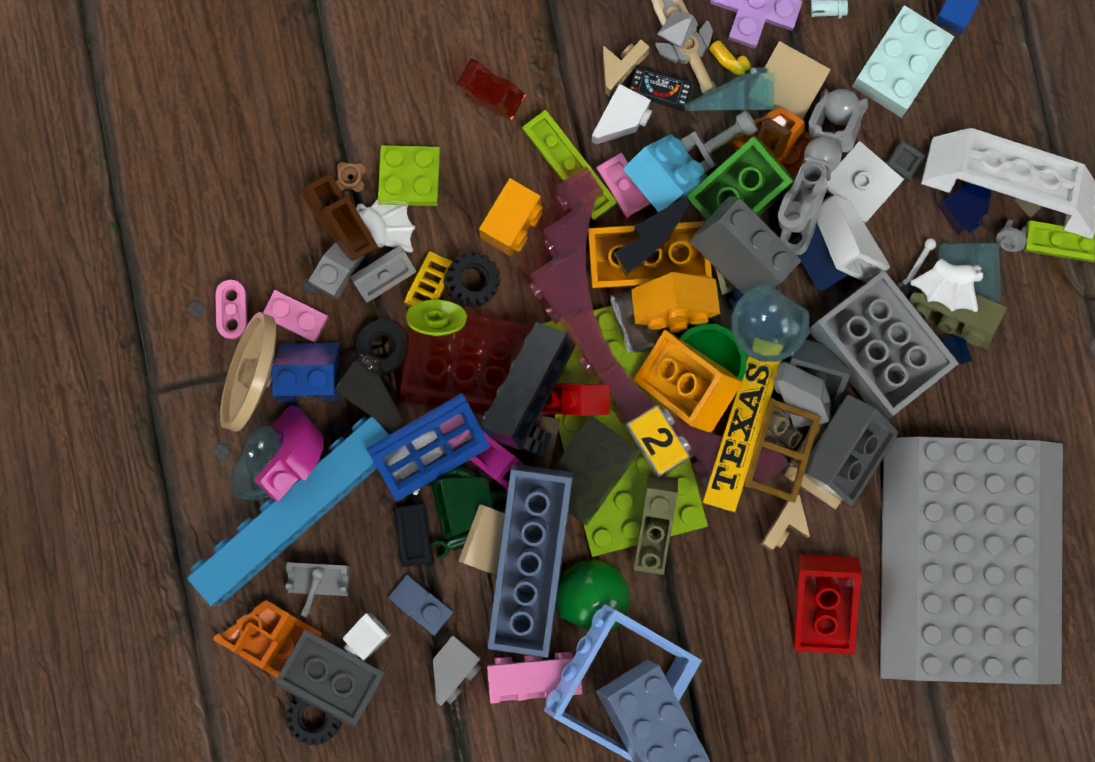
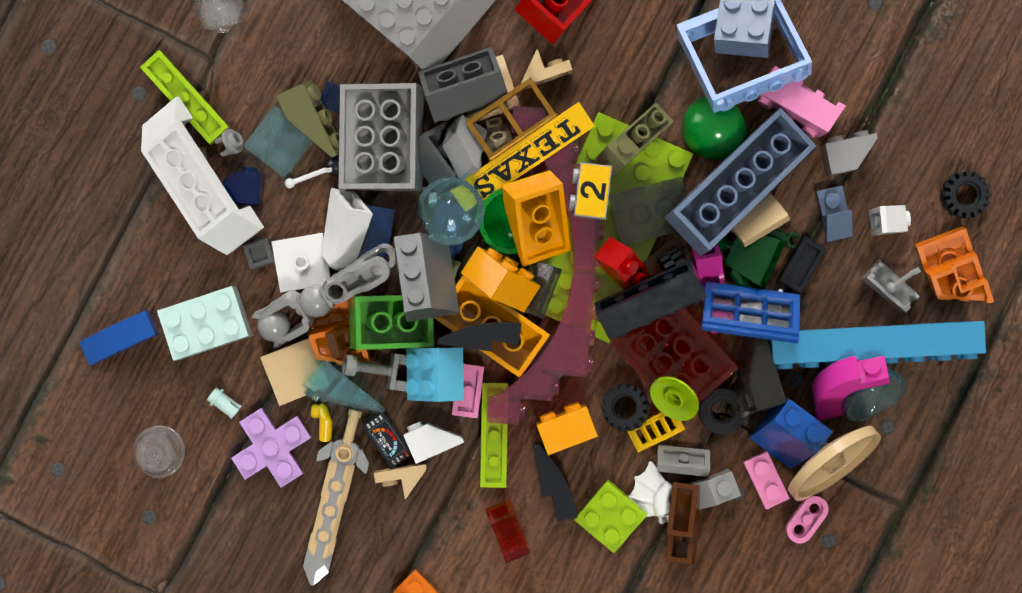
camera: 140 degrees left, 5 degrees up
(329, 678) = (937, 210): dark grey plate -> none
(346, 169) = (651, 555): medium nougat plate -> none
(480, 164) = (554, 483): none -> black slope
(678, 28) = (343, 470): light grey slope -> none
(950, 285) = (301, 141): white arm -> none

